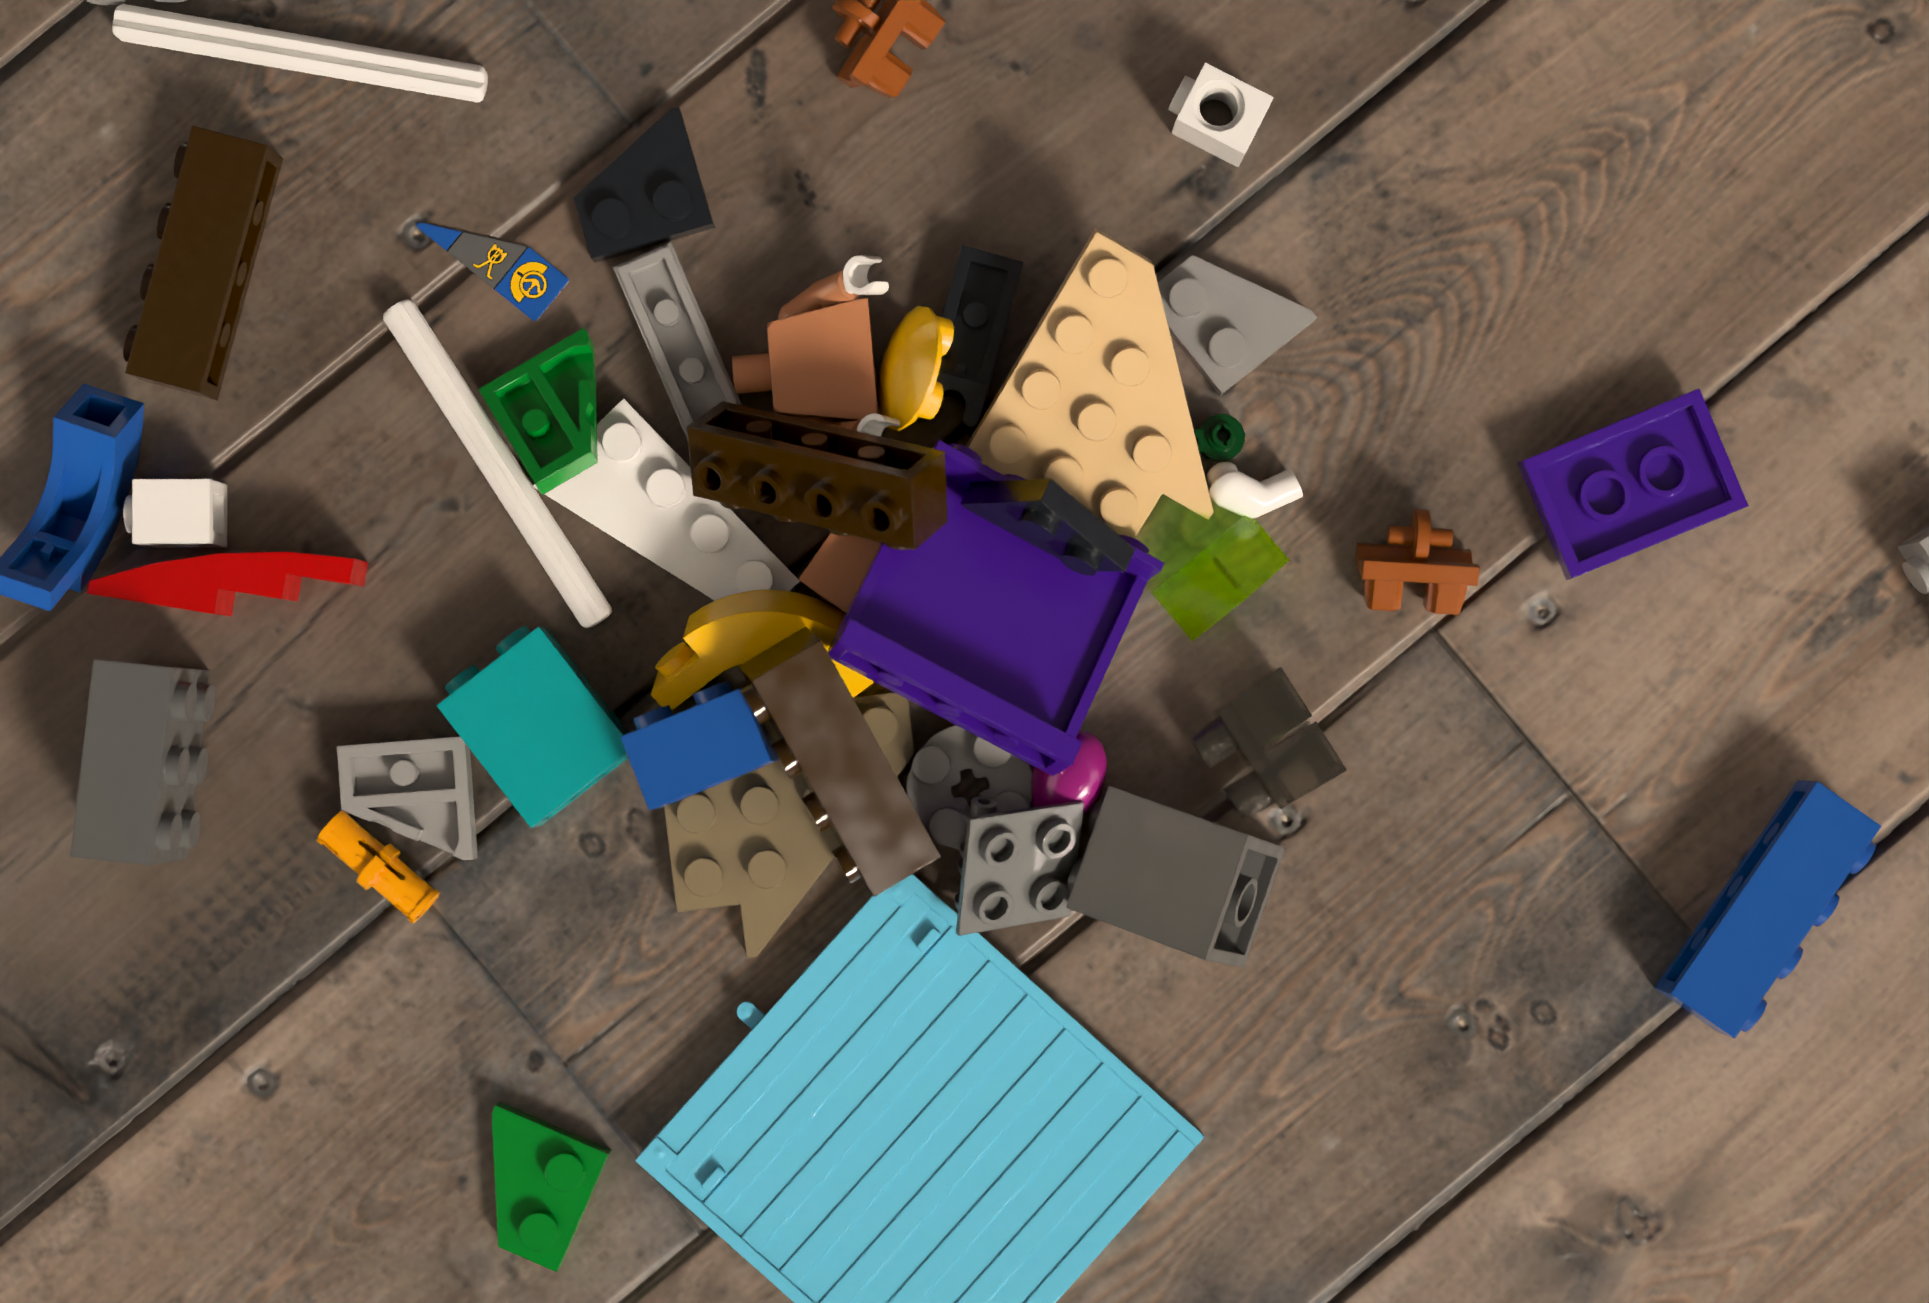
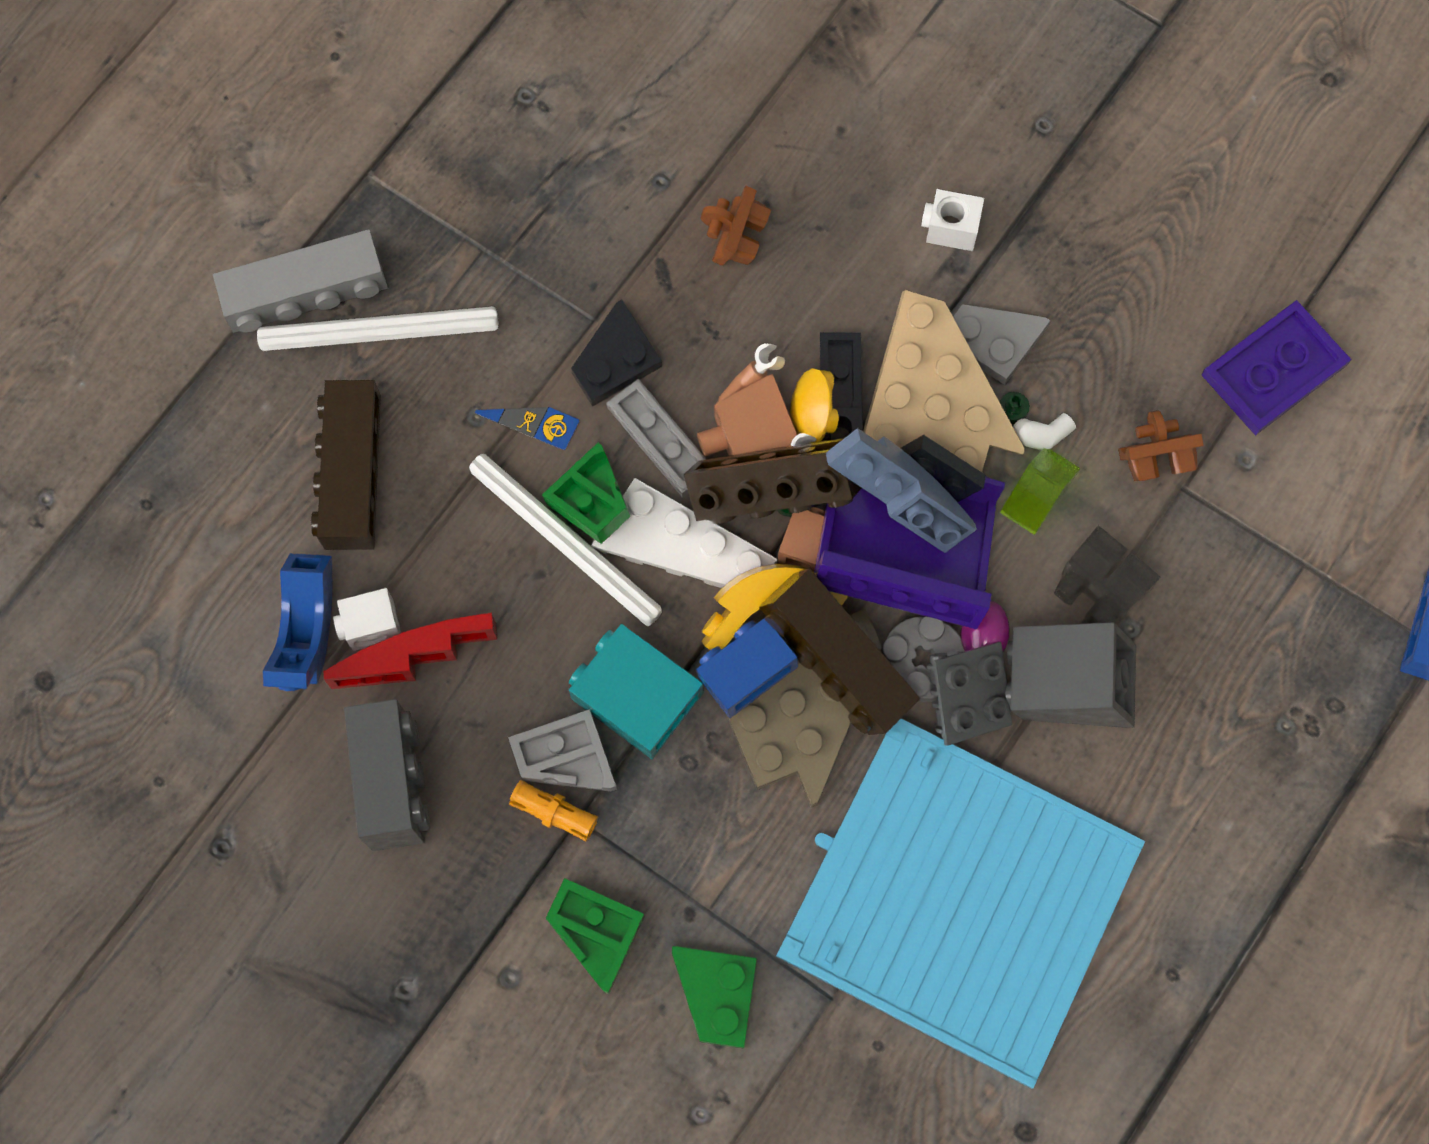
camera: 15 degrees left, 15 degrees down
(392, 1053) = (594, 930): none -> green wing
(1004, 551) = (905, 486): none -> sand blue slope

